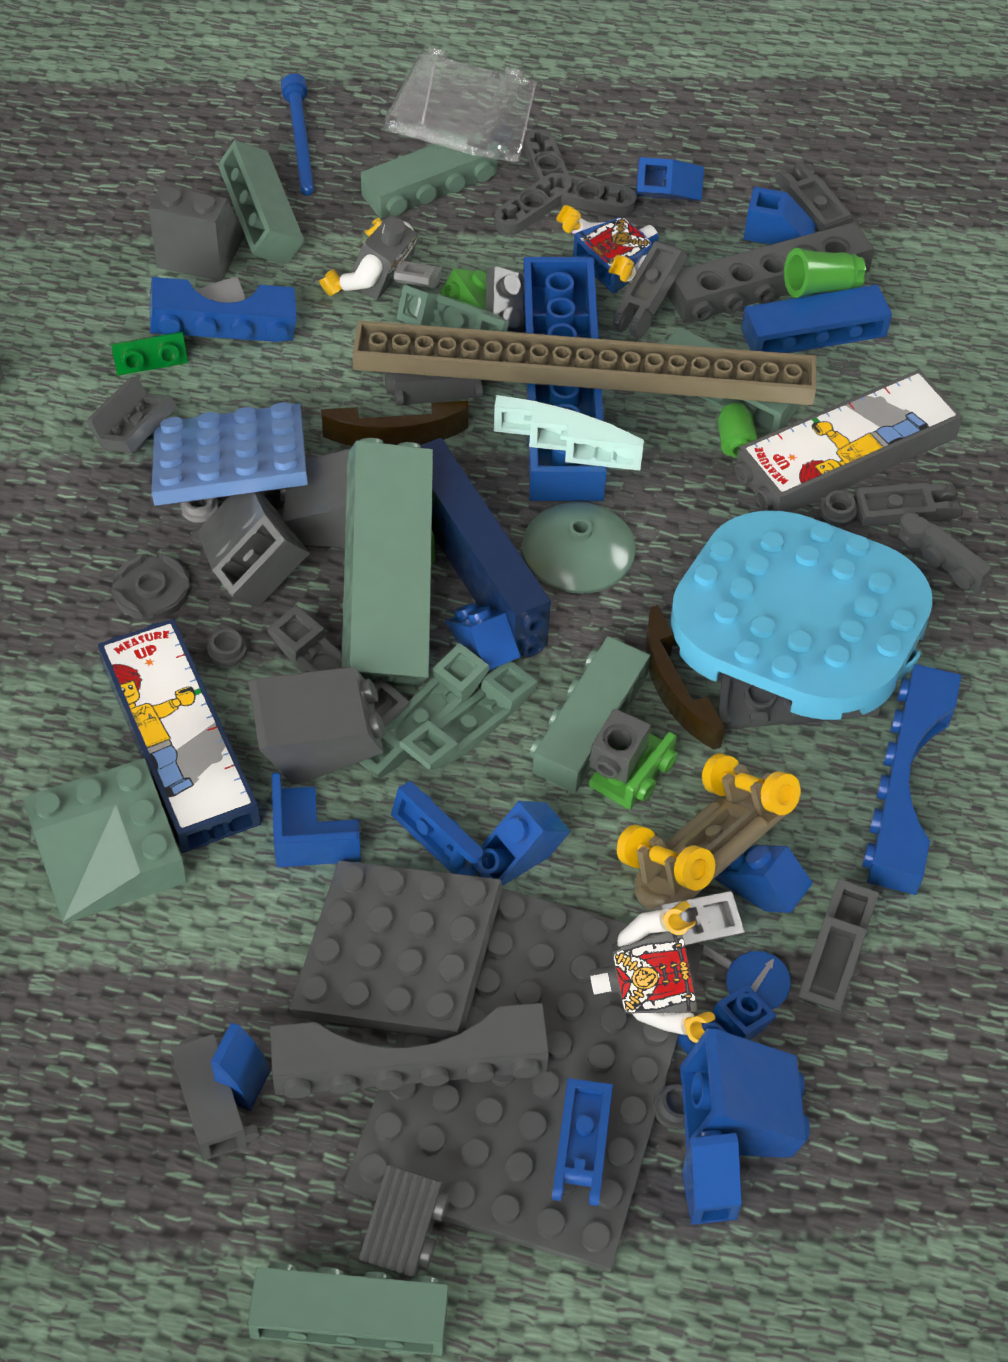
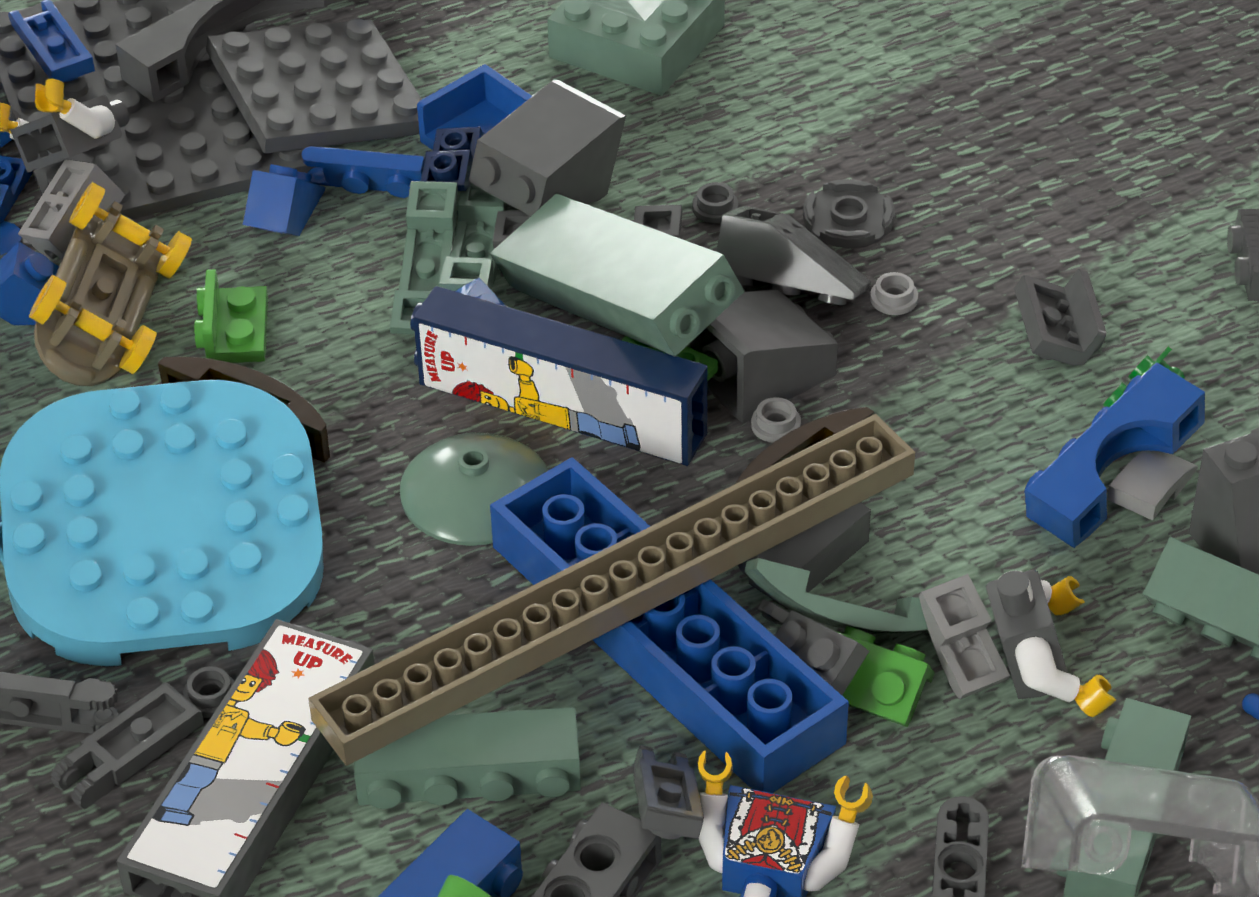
camera: 145 degrees right, 10 degrees down
(179, 735) = (691, 118): brick -> none
(228, 454) = (905, 315): medium blue plate -> none
(373, 789) = (451, 156): none -> dark blue slope
(557, 428) = (546, 492): light aqua slope -> none
(608, 683) = (311, 327): sand green brick -> none
(623, 732) = (248, 288): dark grey brick -> none

